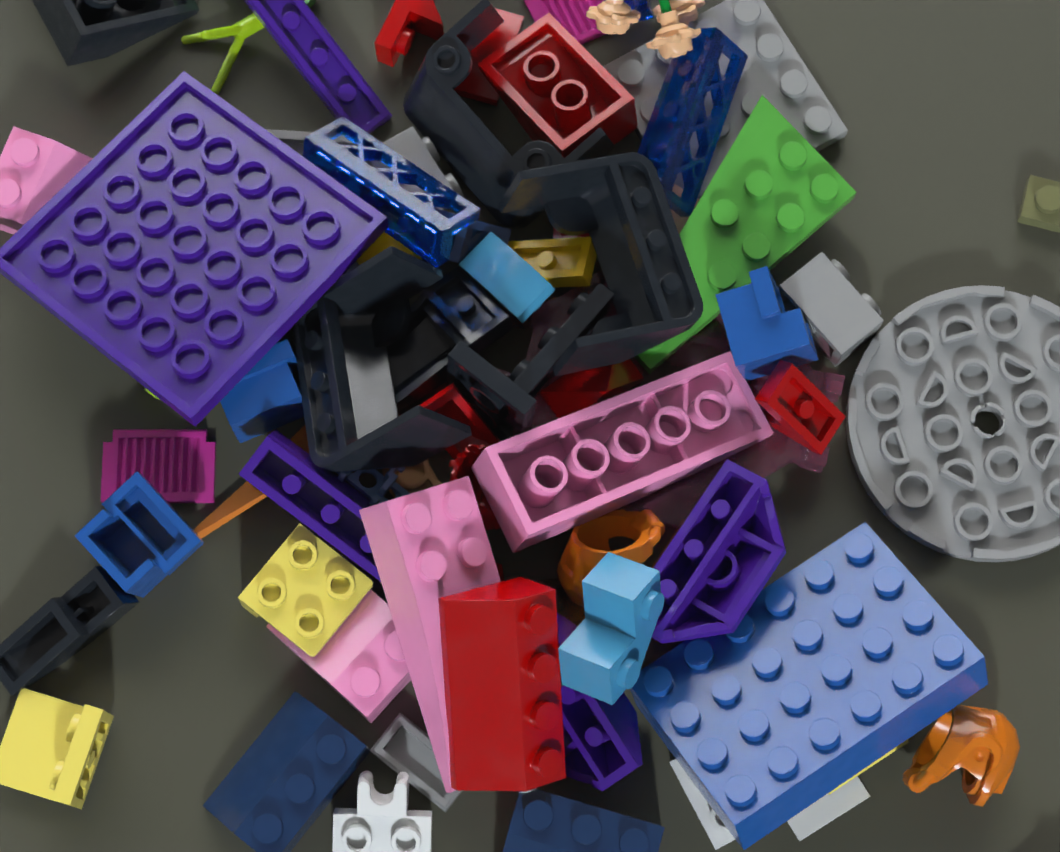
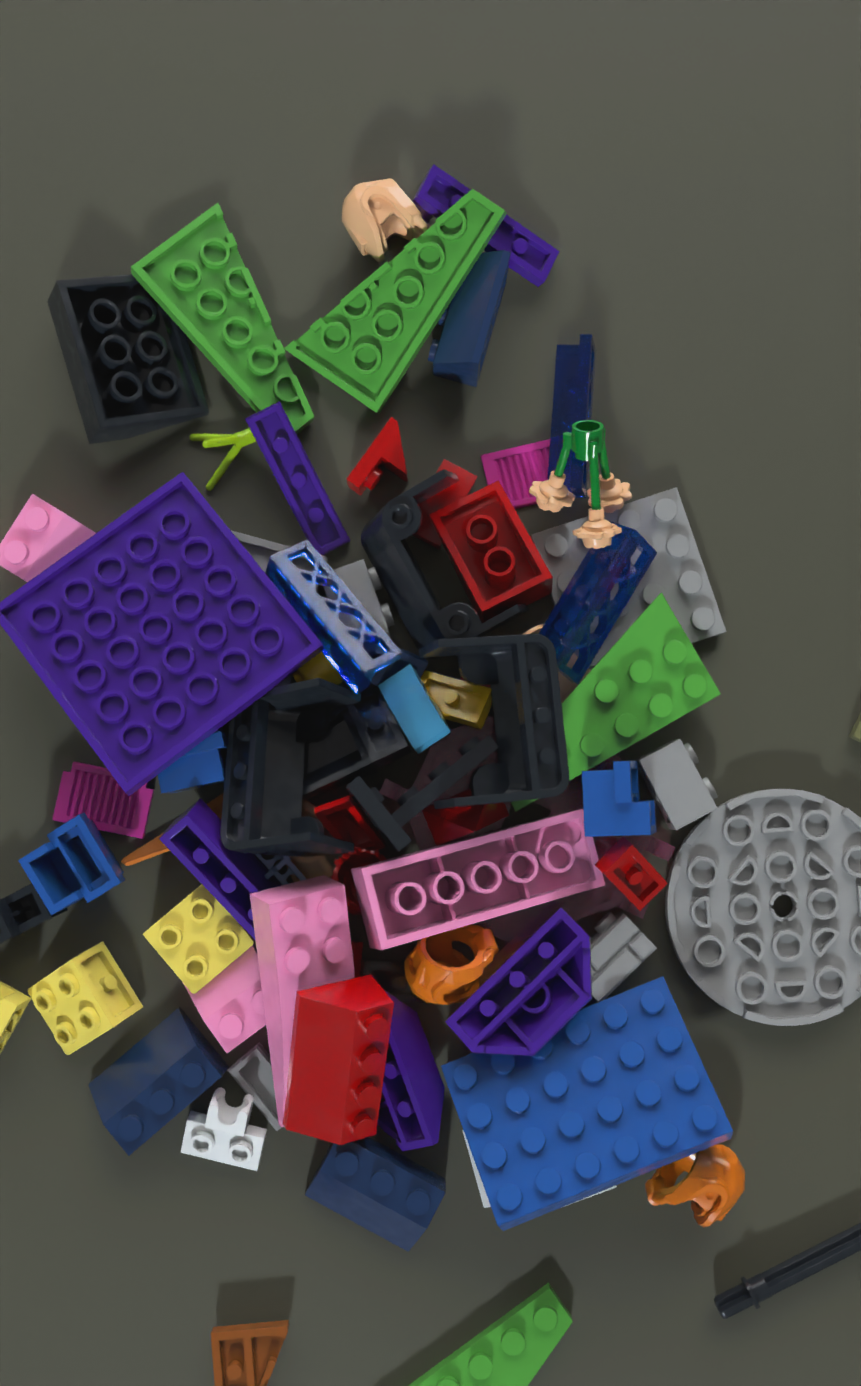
camera: 15 degrees right, 10 degrees up
(177, 700) = (84, 998): none -> light yellow bracket
(619, 621) = (431, 1047): dark azure brick -> none
(805, 511) = (616, 952): none -> light grey brick

